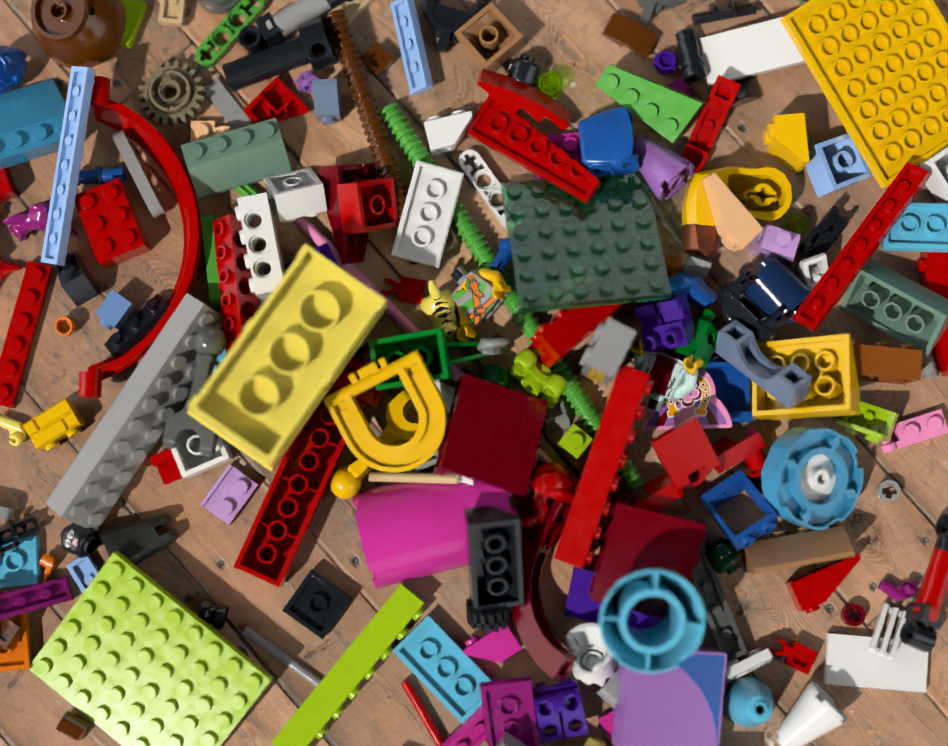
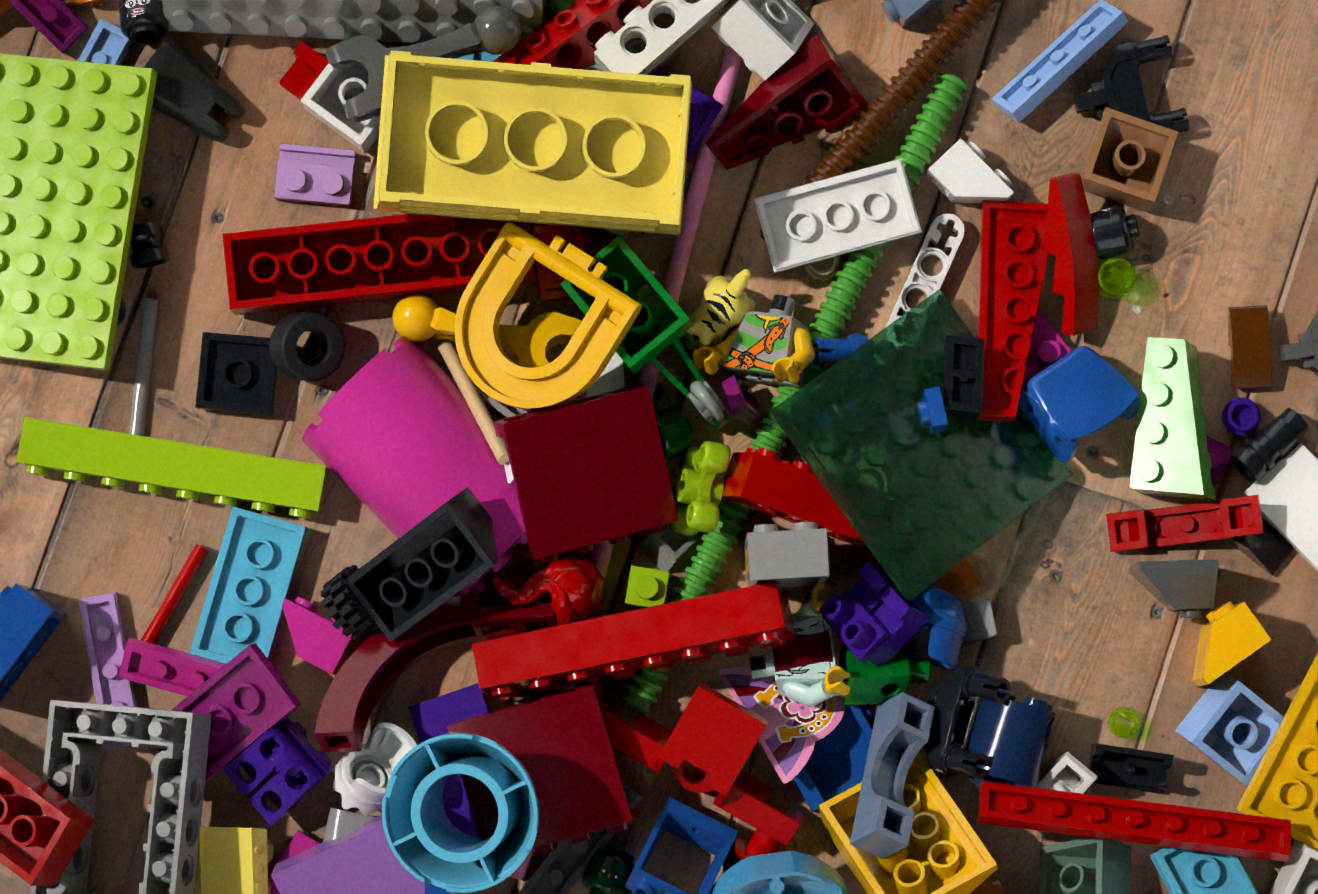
camera: 60 degrees right, 0 degrees up
(338, 548) = (328, 353): none -> black tyre
(368, 205) = (802, 129): red brick -> none
(377, 59) = (1011, 26): reddish brown plate -> none
(408, 290) = (724, 251): red plate -> none
(500, 328) = (741, 401): none -> magenta plate
(562, 195) = (963, 377): none -> black hinge
(571, 223) = (932, 411): none -> blue plate
(661, 167) = (1088, 490): medium lavender cone -> none
(730, 217) = (1067, 621): light nougat slope -> none
(742, 145) = (1180, 584): none -> dark grey slope
(760, 190) = (1102, 608): yellow piece -> none
(776, 242) = (1075, 709): lavender torso -> none

